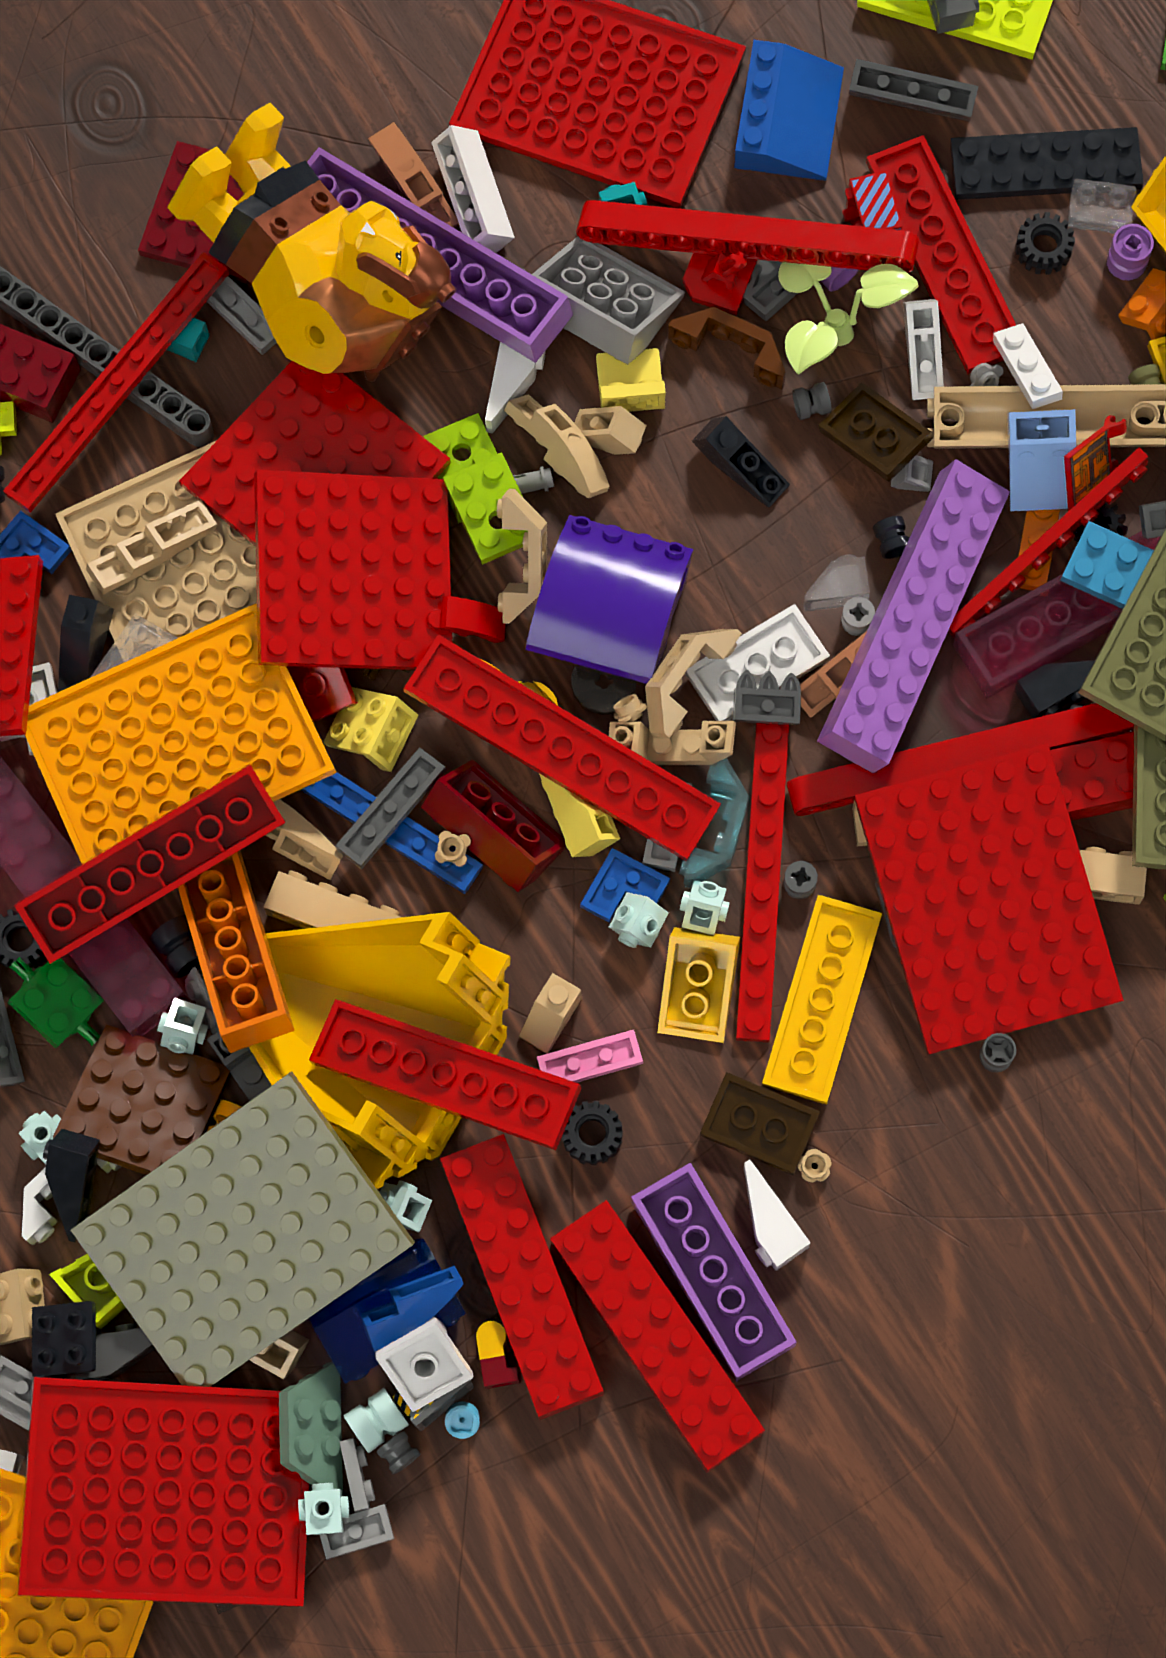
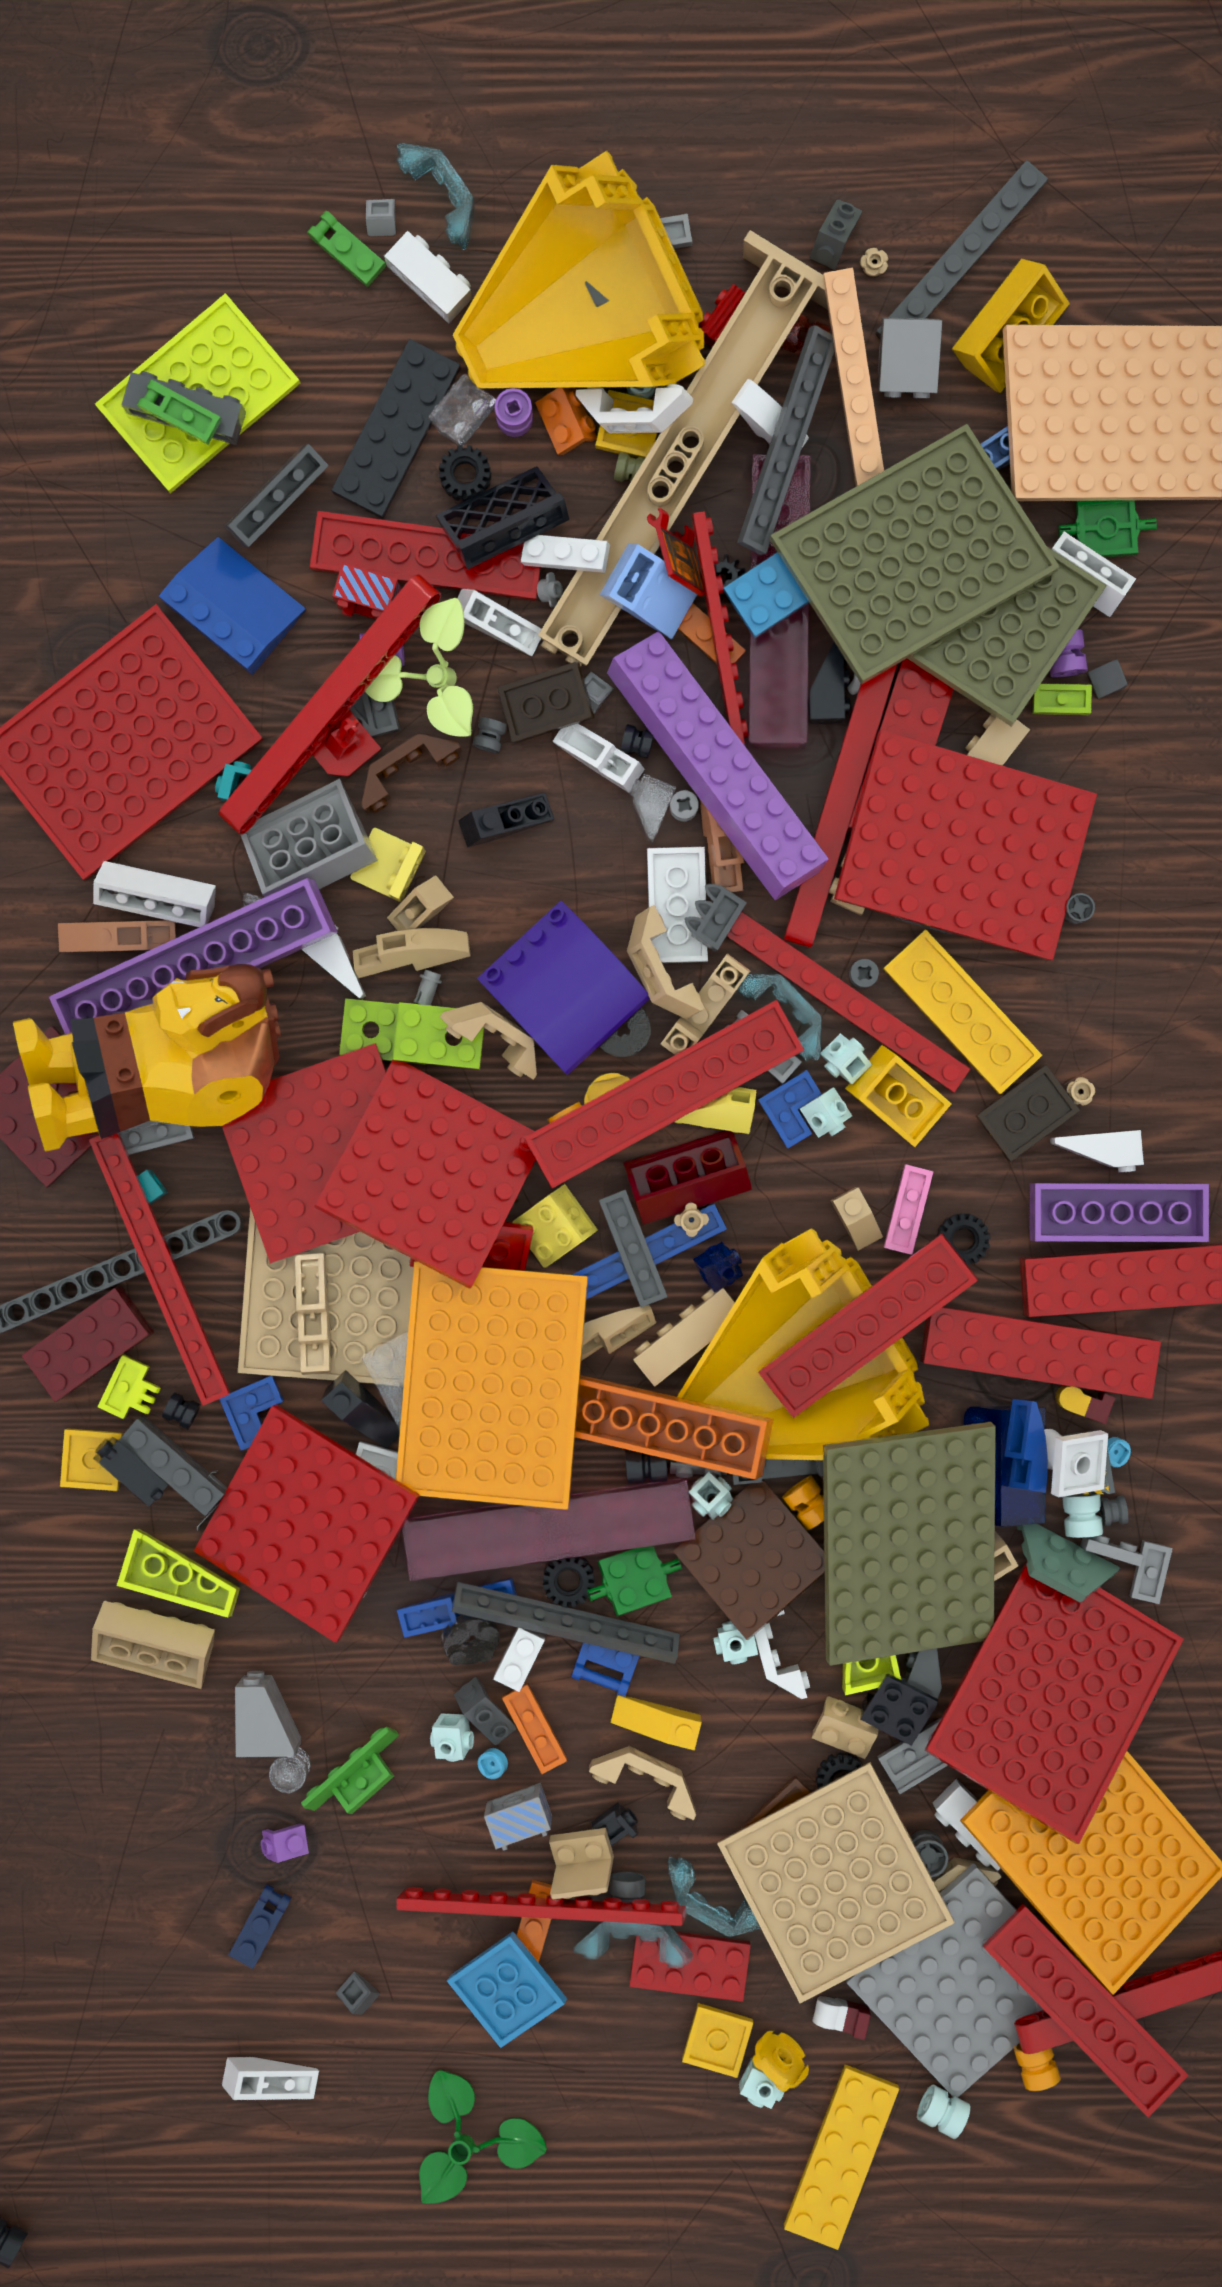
camera: 60 degrees left, 15 degrees up
(71, 1175) = (782, 1641): black slope -> none
(149, 863) = (586, 1458): red brick -> none
(323, 1524) = (1129, 1588): light aqua brick -> none
(406, 1204) = (942, 1408): light aqua brick -> none
(421, 898) = (719, 1266): none -> clear blue brick
(472, 618) = (516, 1100): red slope -> none
(629, 709) = (659, 1024): tan plate -> none
(856, 510) = (599, 755): none -> white slope
(1024, 308) = (509, 529): none -> black fence

